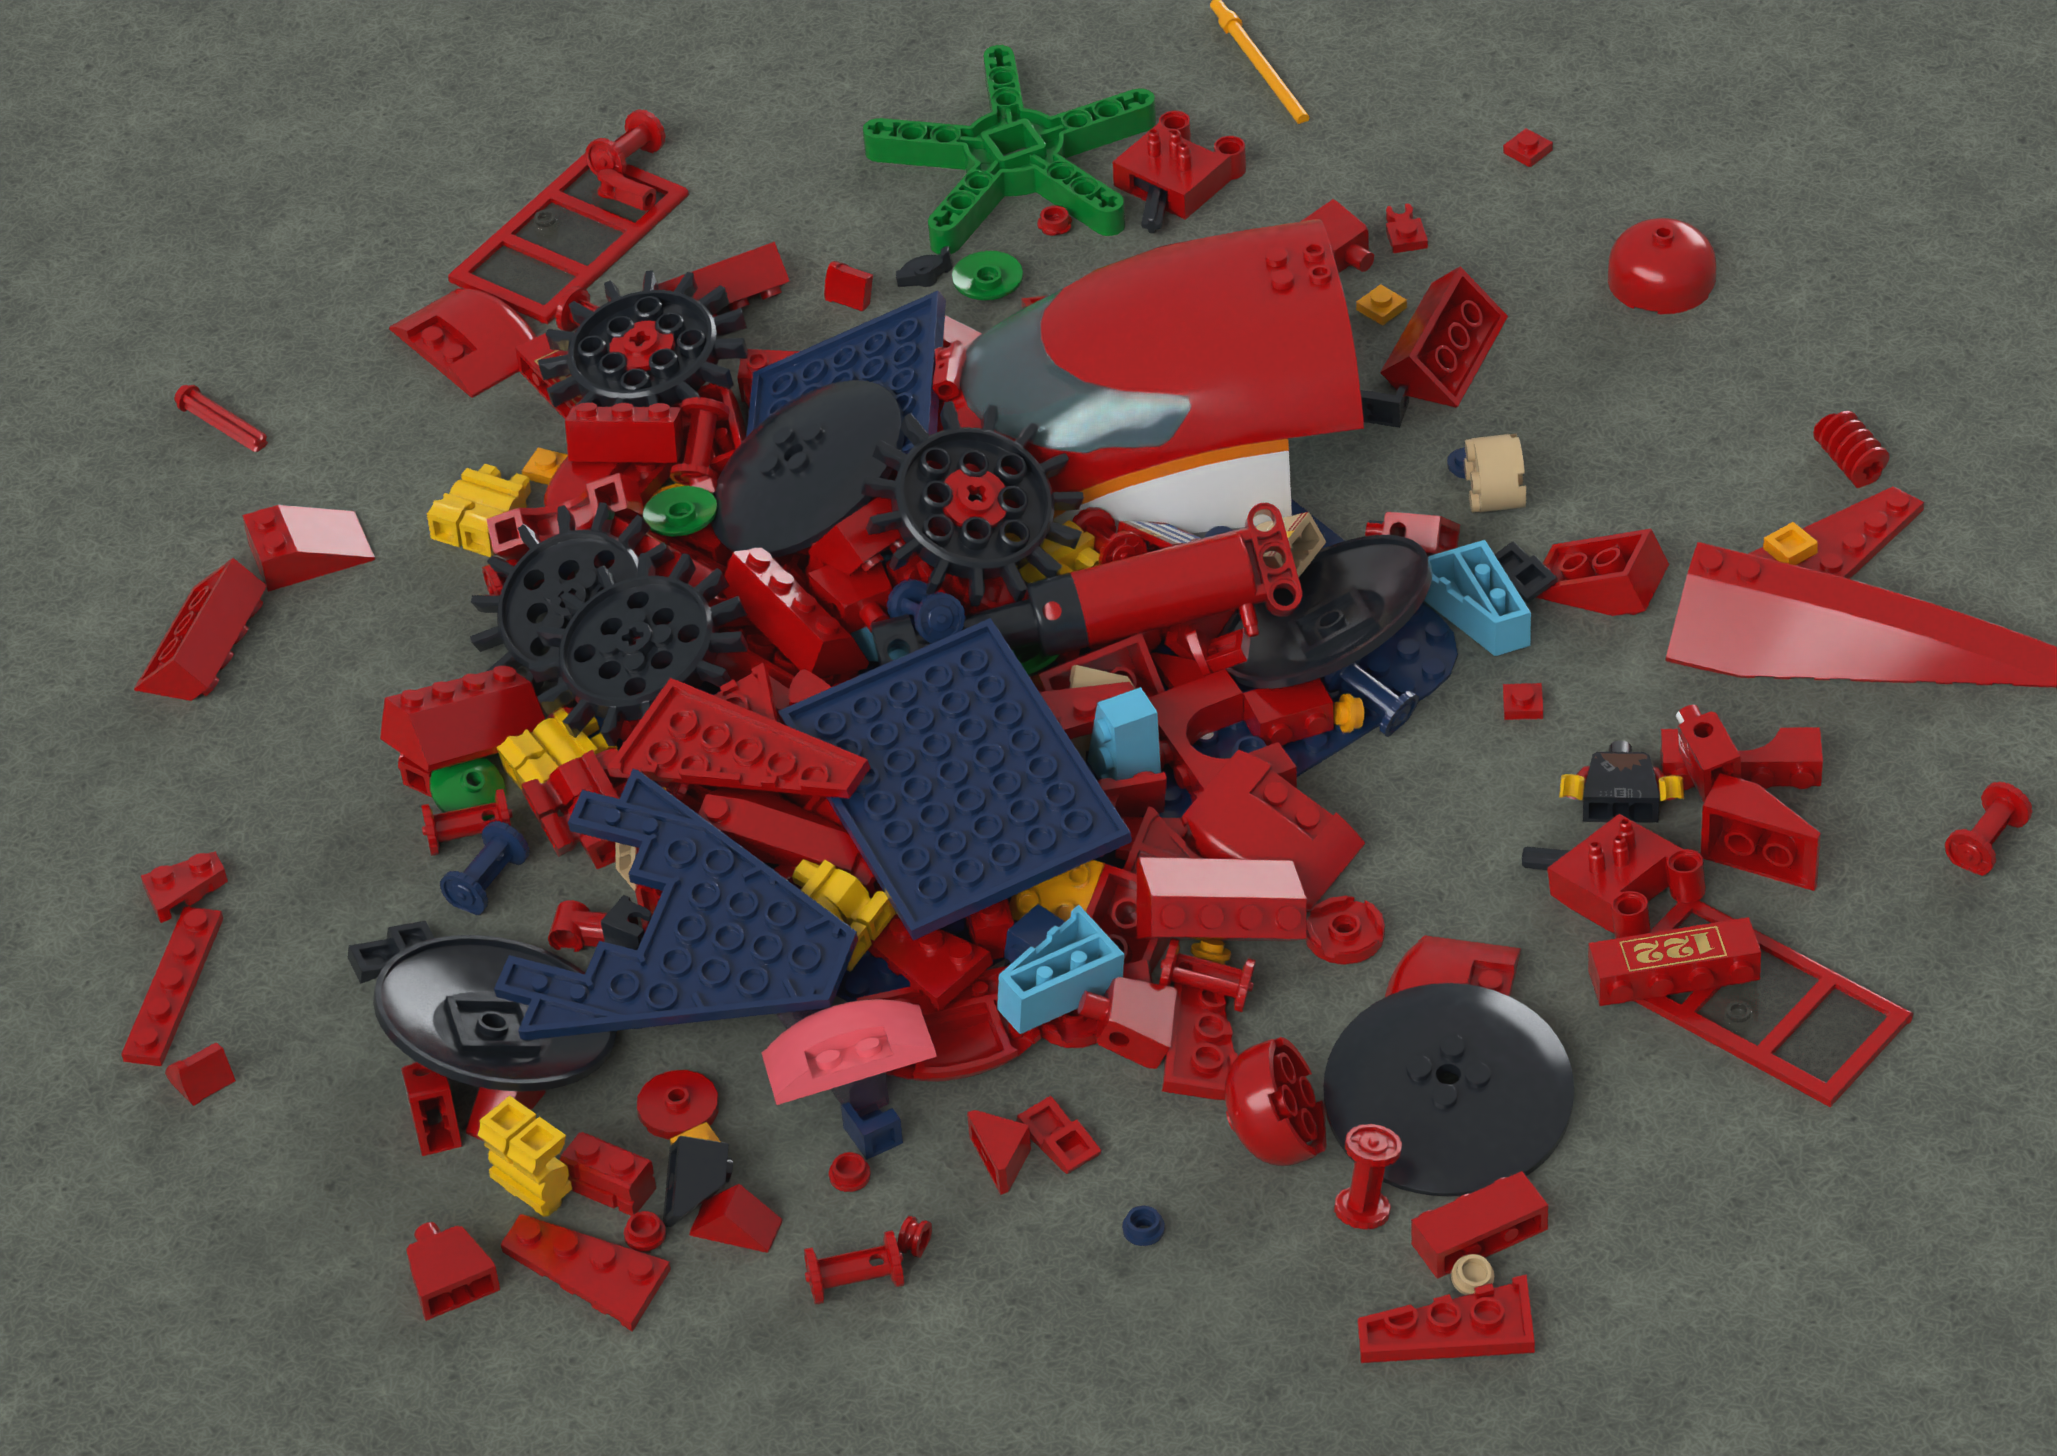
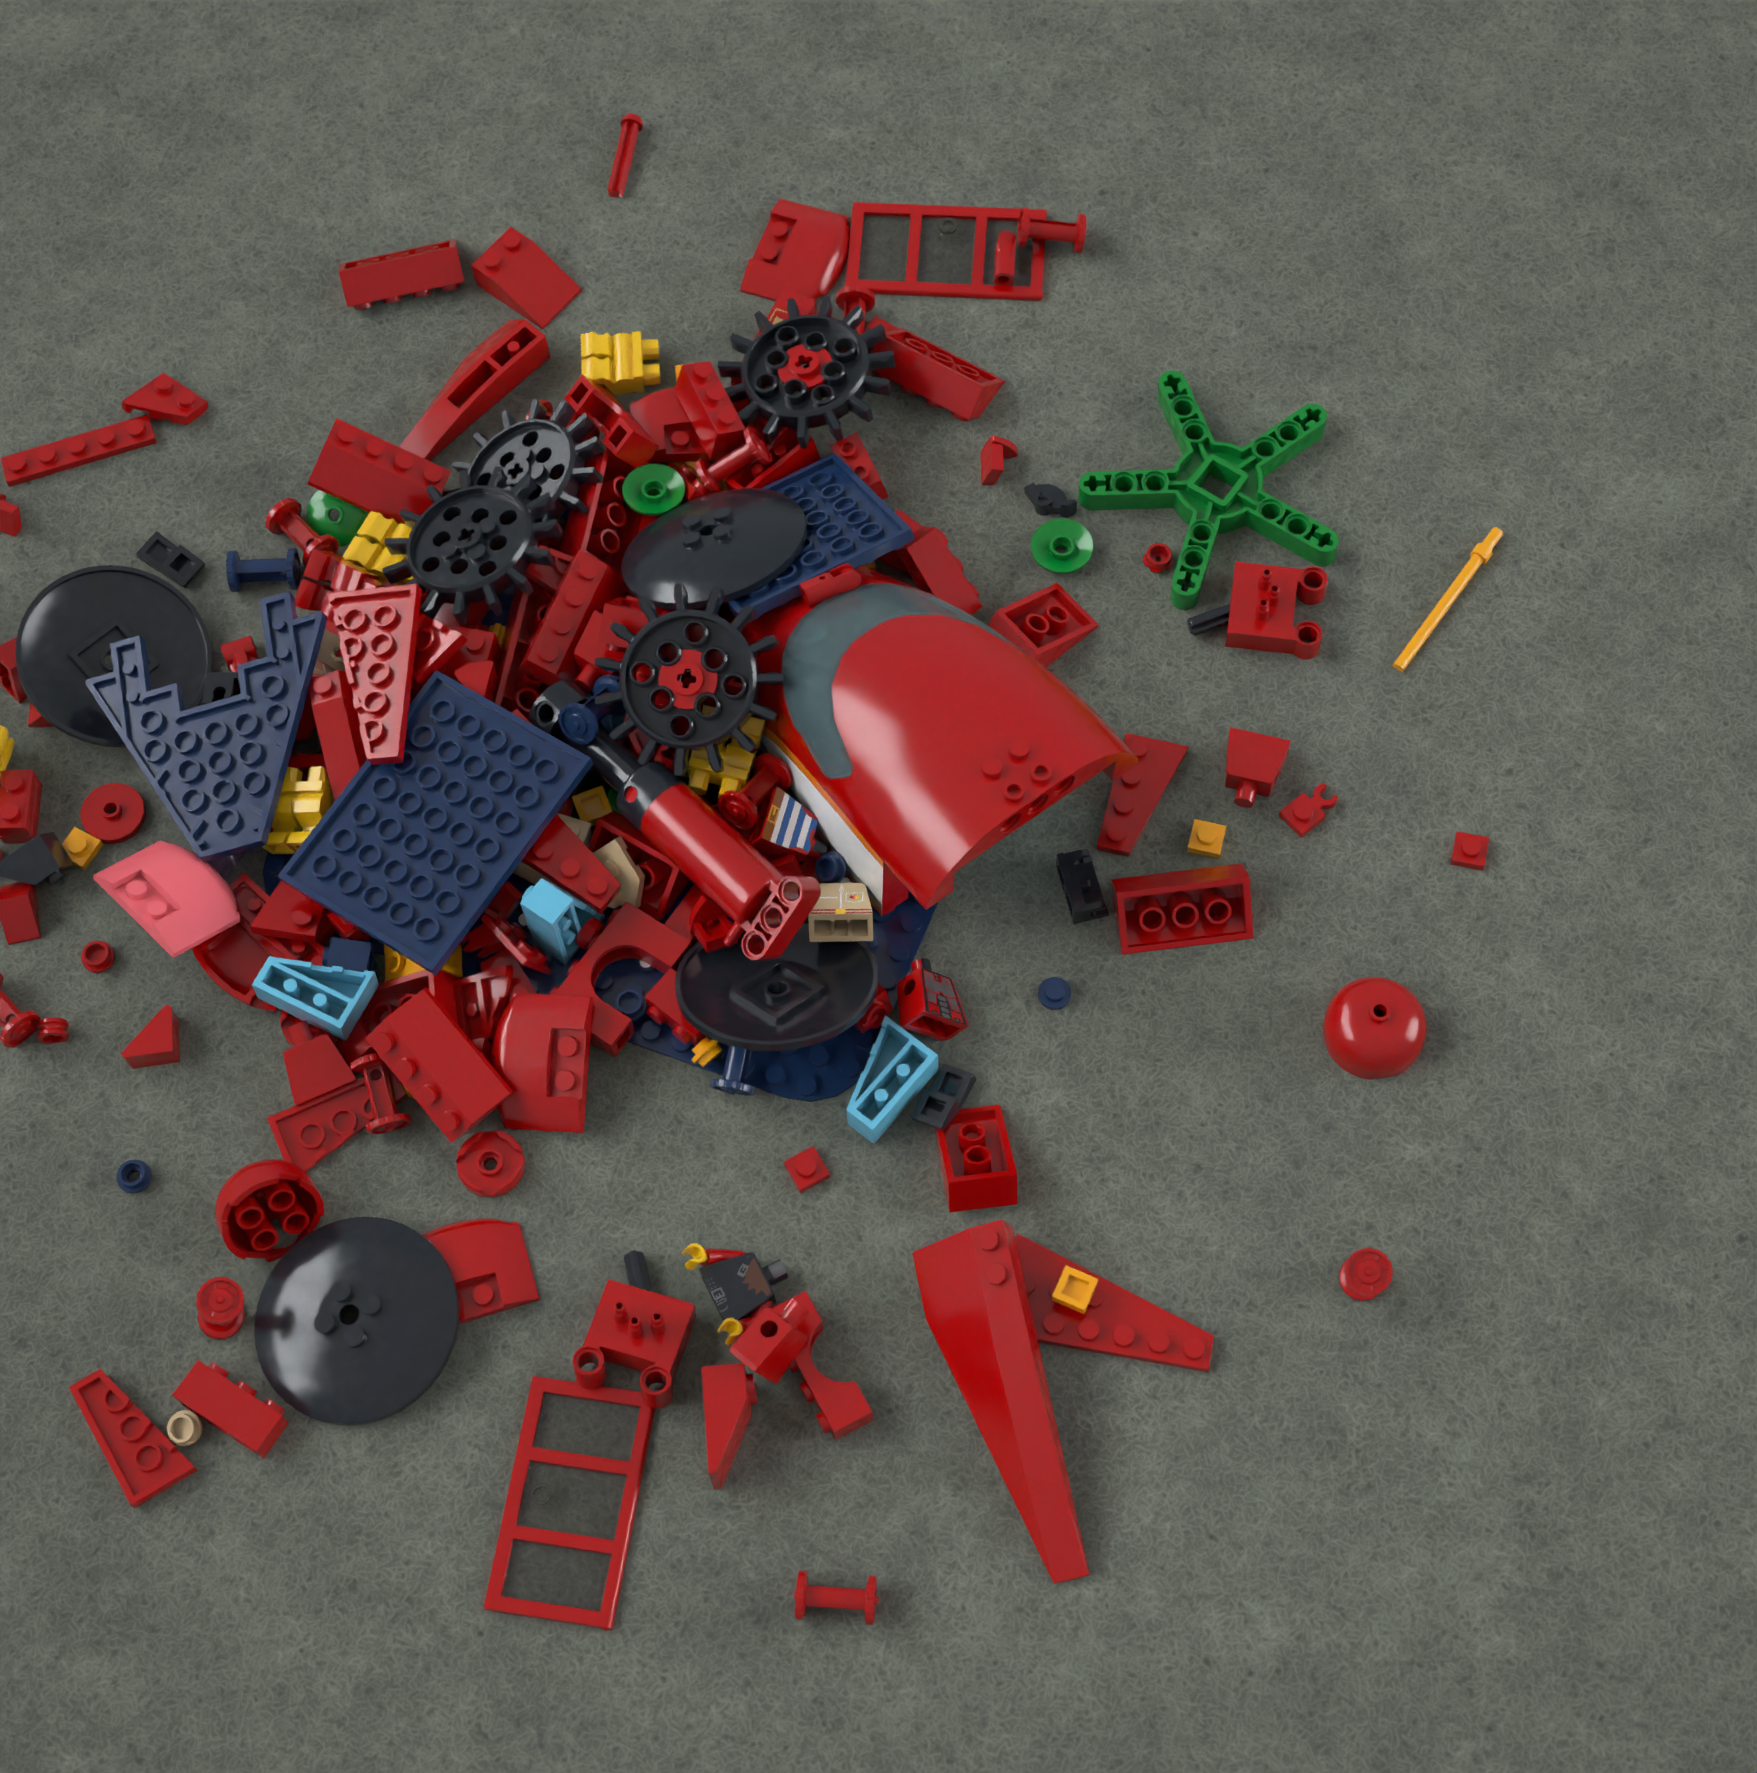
camera: 60 degrees right, 20 degrees up
(398, 612) = (478, 385): none -> red wedge
(874, 1131) = (139, 949): dark blue panel -> none
(1058, 1137) = (196, 1075): red slope -> none
(1495, 473) = (1033, 1023): tan brick -> none
(1674, 961) = (557, 1423): red brick -> none
(1851, 447) = (1235, 1281): red piece -> none
(1915, 332) = (1365, 1274): none -> red hose

